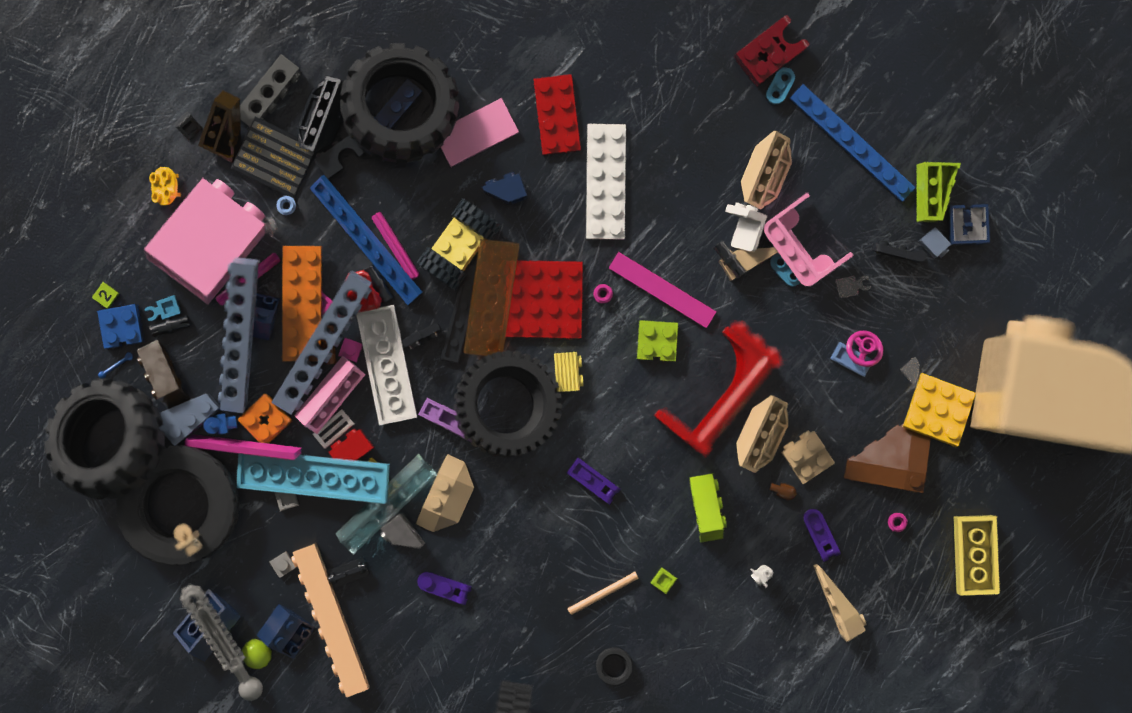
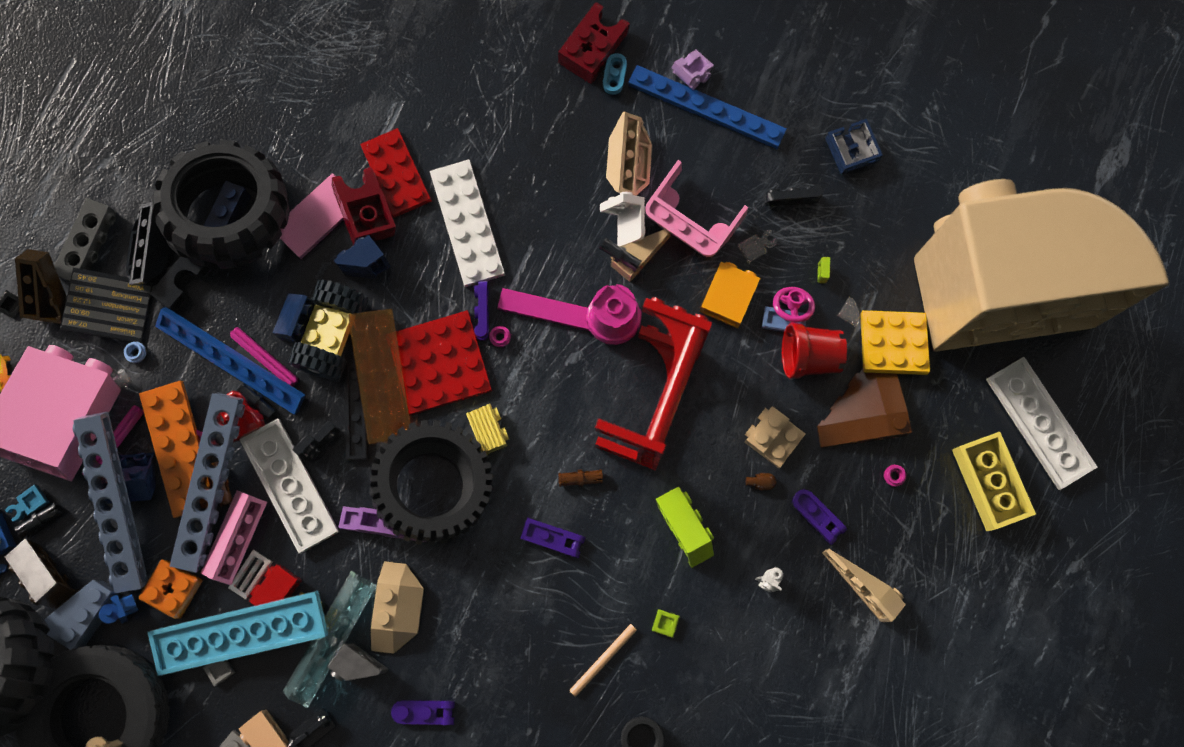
camera: 15 degrees left, 10 degrees down
(243, 447) = (150, 626): dark pink tile -> none
(350, 349) = (246, 482): dark pink plate -> none
(432, 222) = (293, 318): none -> dark blue slope
(520, 137) = (361, 203): none -> dark red brick
(593, 267) = (482, 311): none -> dark purple plate
(632, 438) = (580, 478): none -> reddish brown pin
(657, 340) = (573, 364): lime piece -> none
(706, 309) = (613, 315): none -> dark pink piece
(762, 433) = (718, 426): tan wedge -> none
(783, 271) = (682, 252): dark azure plate -> none
(813, 321) = (729, 294): none -> light orange brick
(852, 105) = (693, 69): none -> lavender cylinder
(864, 396) = (812, 351): none -> red piece
(901, 327) = (824, 270): none -> lime tile
(934, 189) = (805, 122): lime wedge -> none
(935, 243) = (827, 175): sand blue brick -> none
(1037, 518) = (1041, 423): none -> white plate

